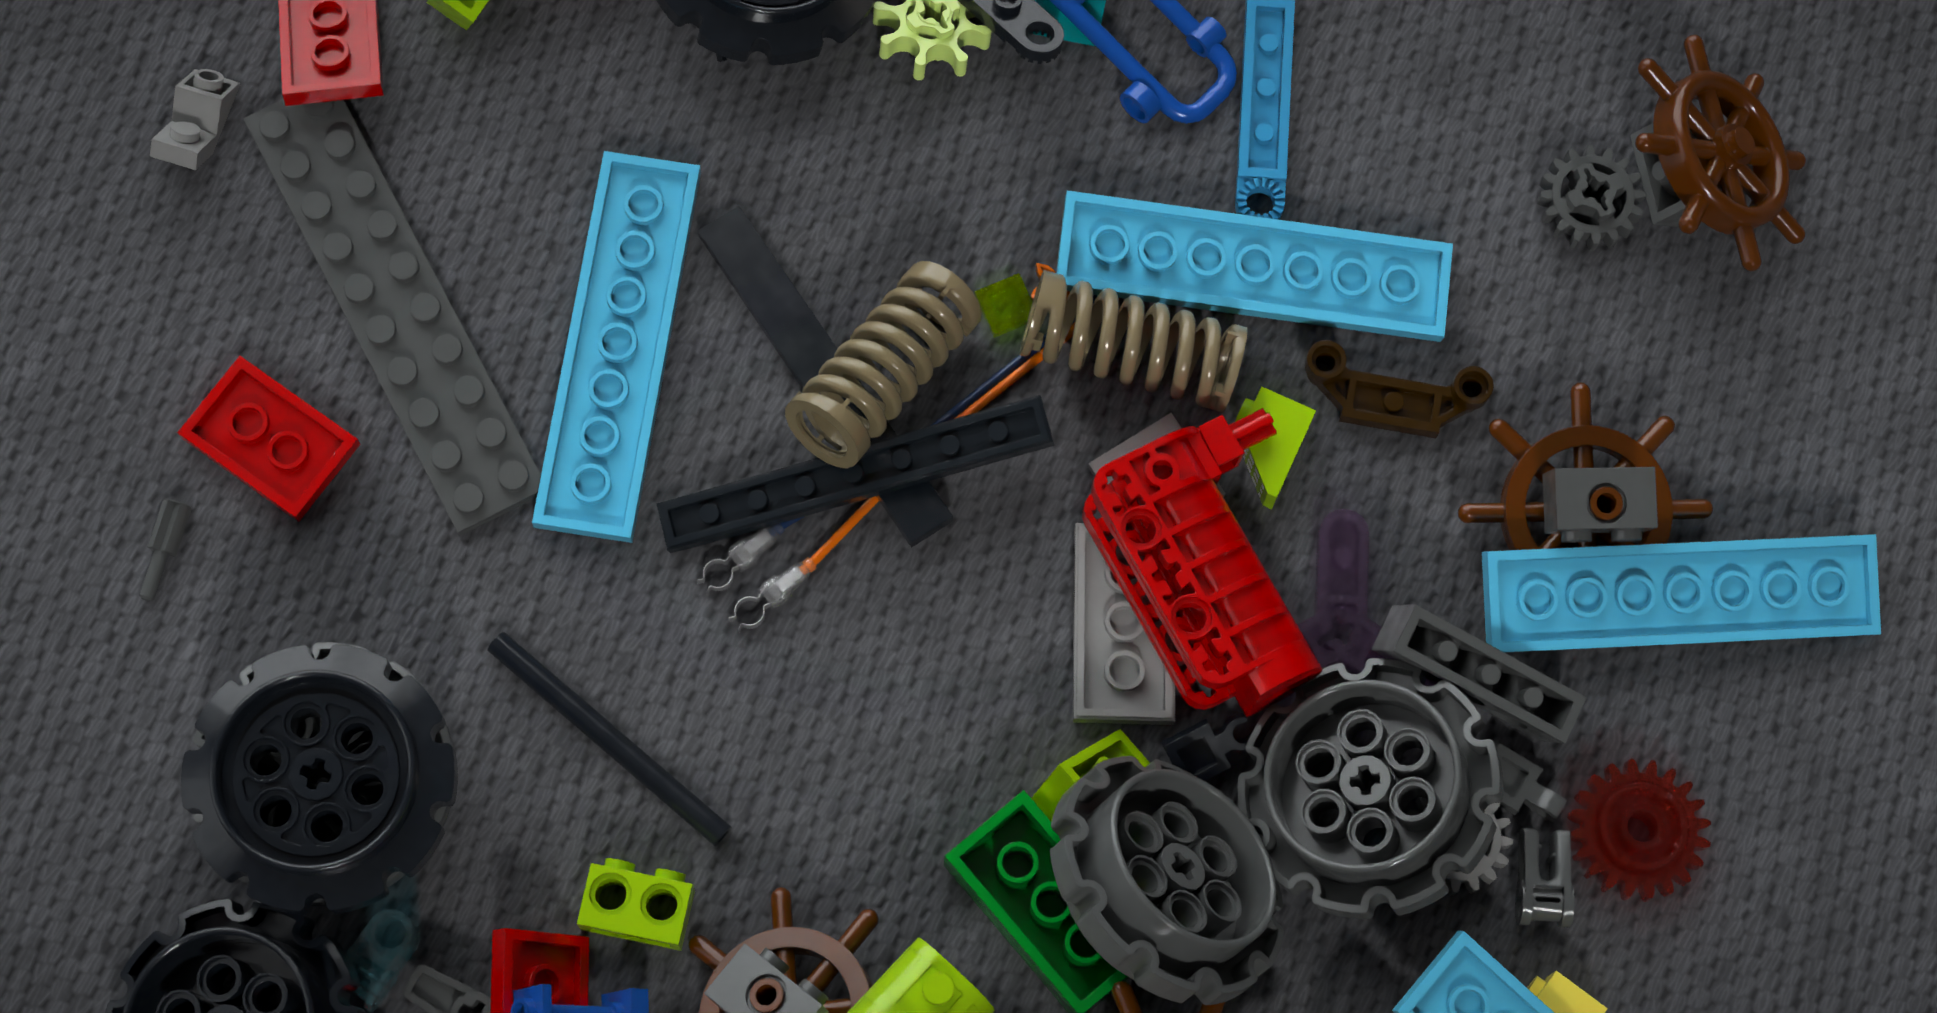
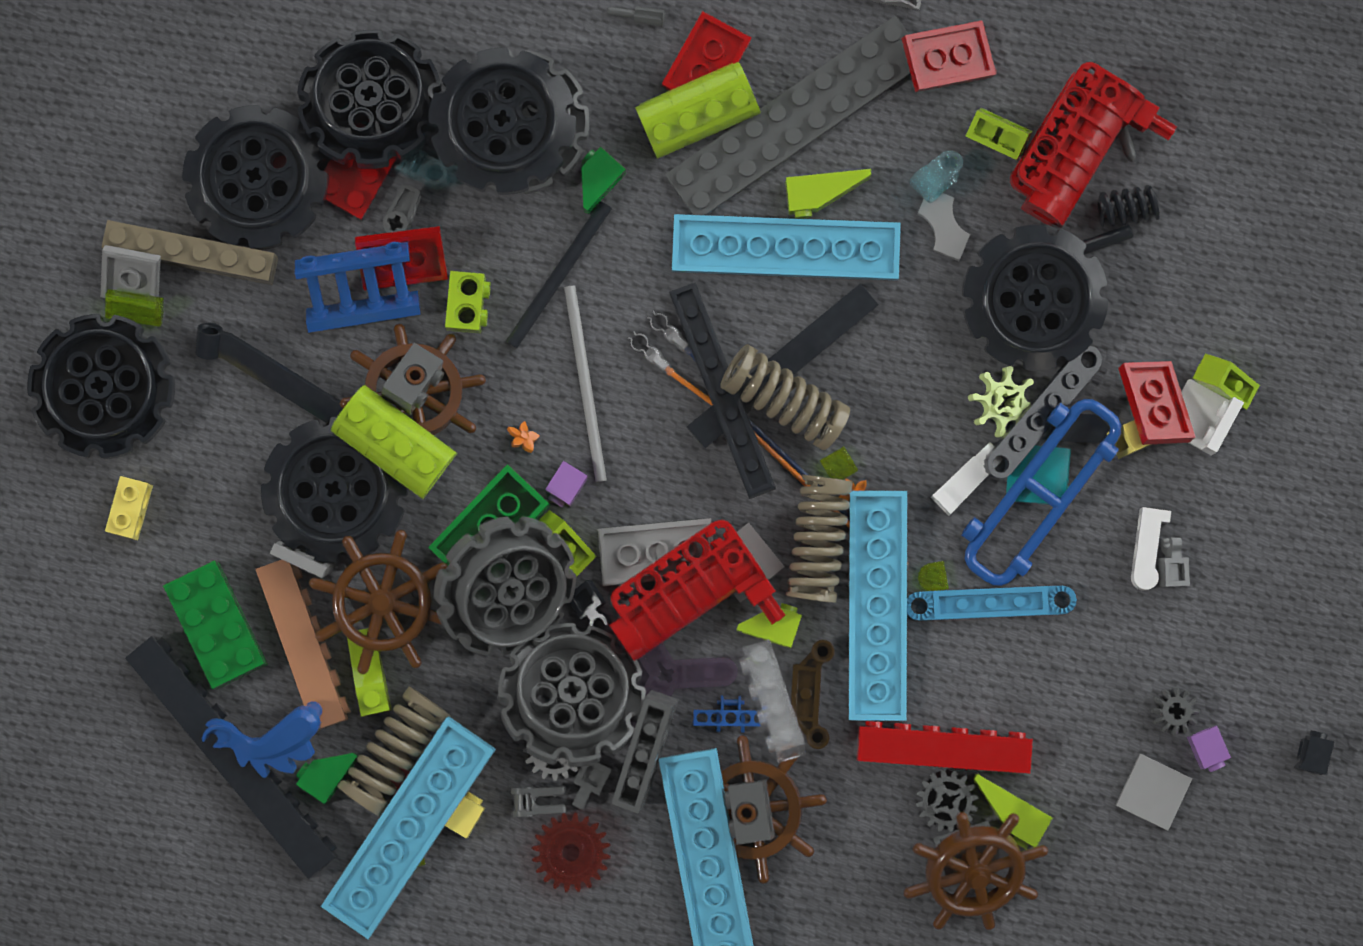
camera: 90 degrees right, 10 degrees up
(351, 456) = (697, 109): none -> lime container
(445, 645) = (599, 177): none -> green slope
(529, 286) = (814, 192): none -> lime slope
(532, 77) = (937, 175): none -> clear light blue piece
(637, 82) = (949, 237): none -> light grey tile
(810, 714) = (585, 383): none -> light grey piece
(895, 832) = (523, 437): none -> orange plant
(989, 765) = (565, 485): none -> medium lavender brick
(1057, 105) = (964, 481): none -> white leg
(1211, 177) = (933, 577): none -> clear neon green tile
(1407, 448) = (774, 703): none -> clear brick
(1416, 516) = (728, 702): none -> blue piece
(1504, 192) = (944, 749): none -> red brick
(1616, 96) = (1031, 822): none -> lime slope

